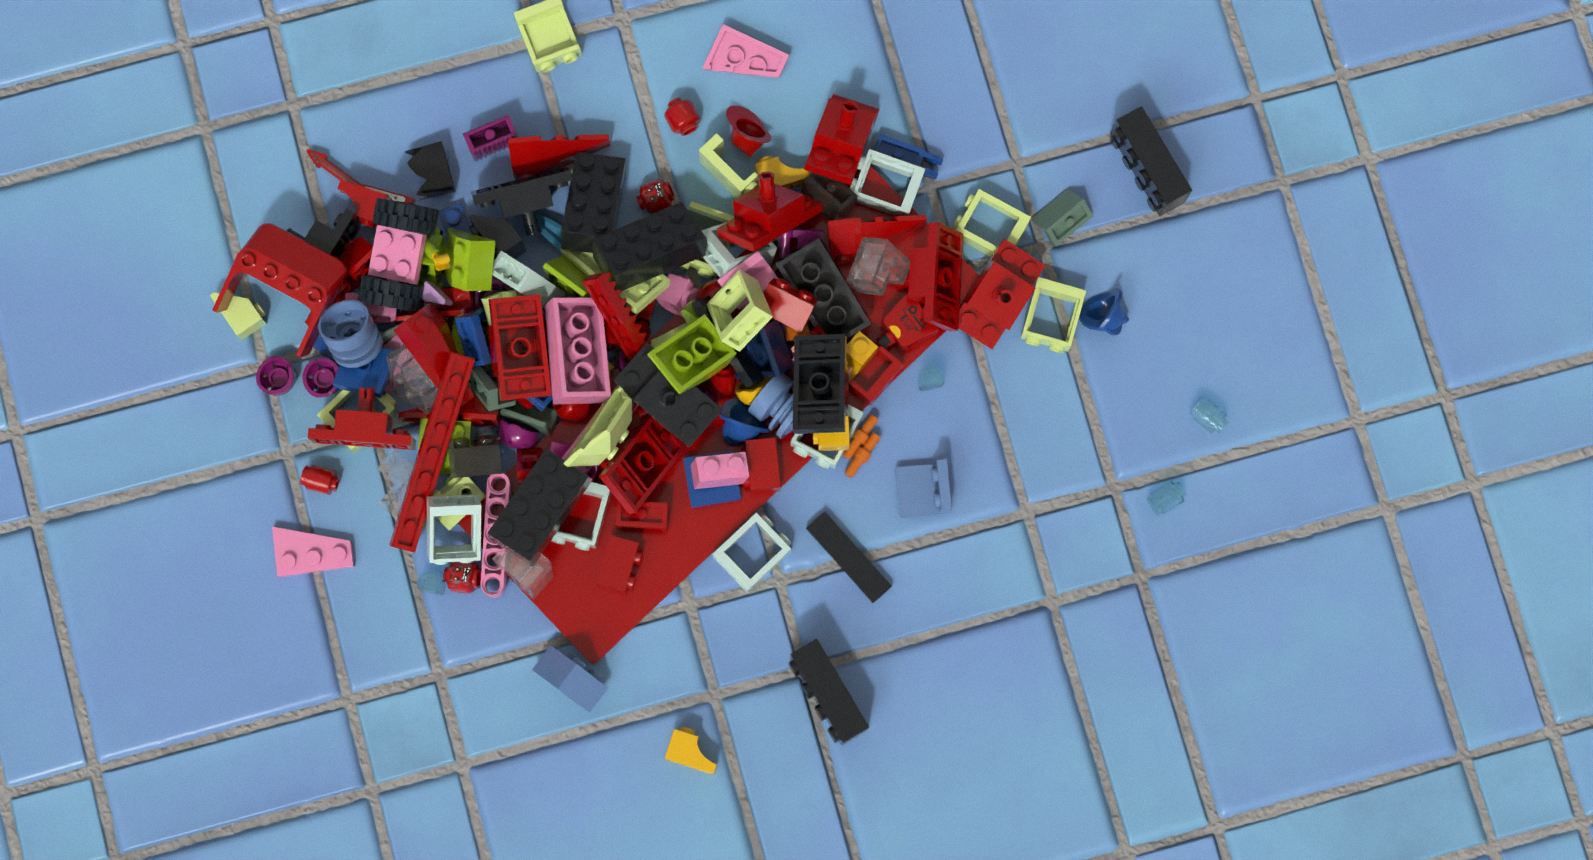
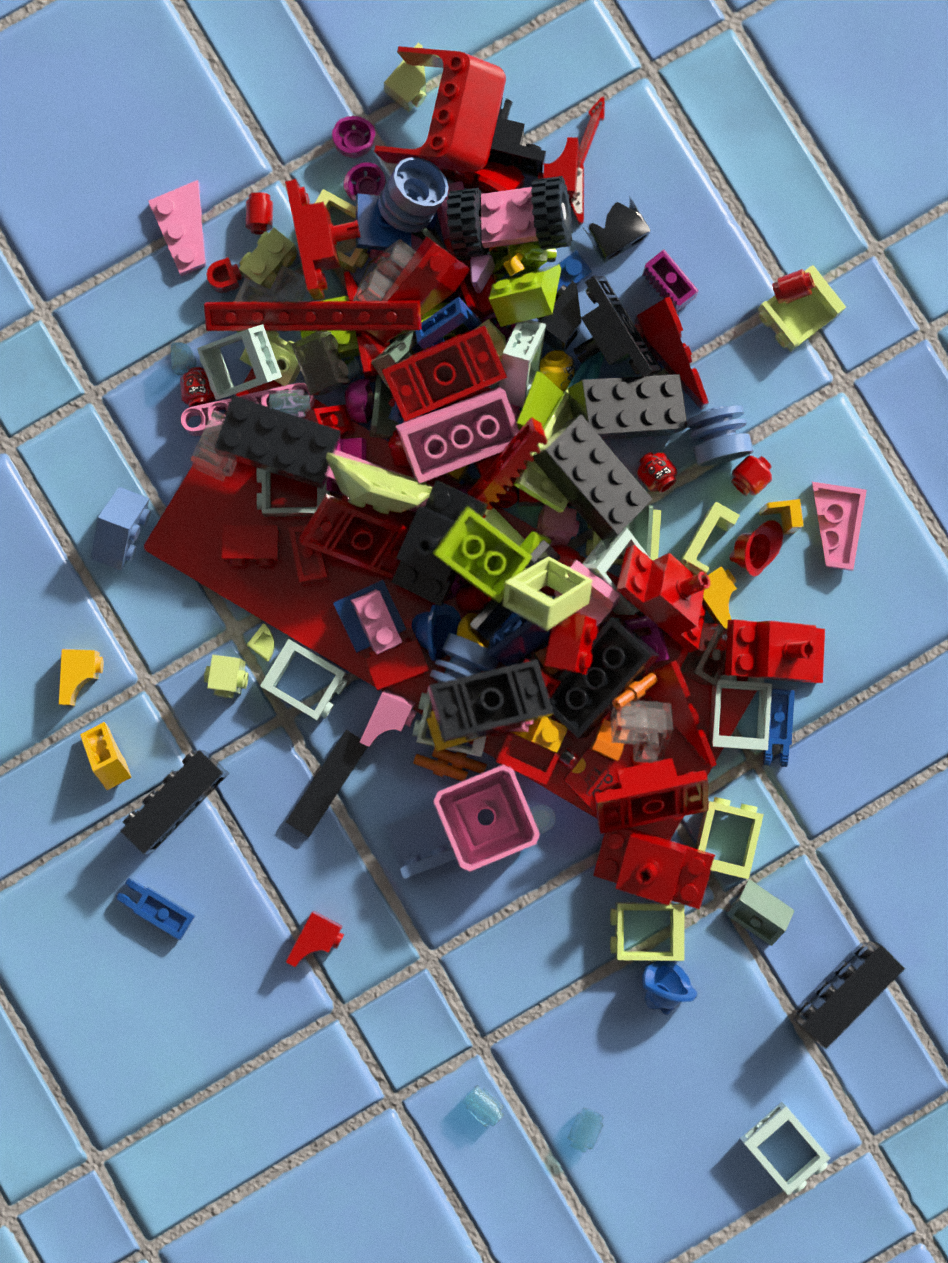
camera: 70 degrees right, 5 degrees up
(361, 476) = (267, 259): none -> yellowish green brick
(368, 525) = (223, 276): none -> red plate
(503, 491) = (291, 402): none -> clear light blue brick
(528, 34) = (793, 286): none -> red brick
(539, 253) = (558, 368): none -> yellow head
(640, 133) = (719, 435): none -> medium blue wheel
(708, 581) = (263, 643): none -> yellowish green tile
(726, 93) = (790, 514): none -> yellow panel
(730, 617) = (226, 676): none -> yellowish green brick
(770, 746) = (105, 756): none -> yellow arch
(803, 484) = (389, 714): none -> bright pink arch
(844, 263) = (634, 691): none -> orange bar
(880, 305) = (603, 742): none -> orange arch
(920, 736) = (158, 909): none -> blue hinge
(923, 401) = (512, 823): none -> bright pink plate
(980, 603) = (317, 935): none -> red arch
(1246, 263) = (769, 1125): none -> light aqua window

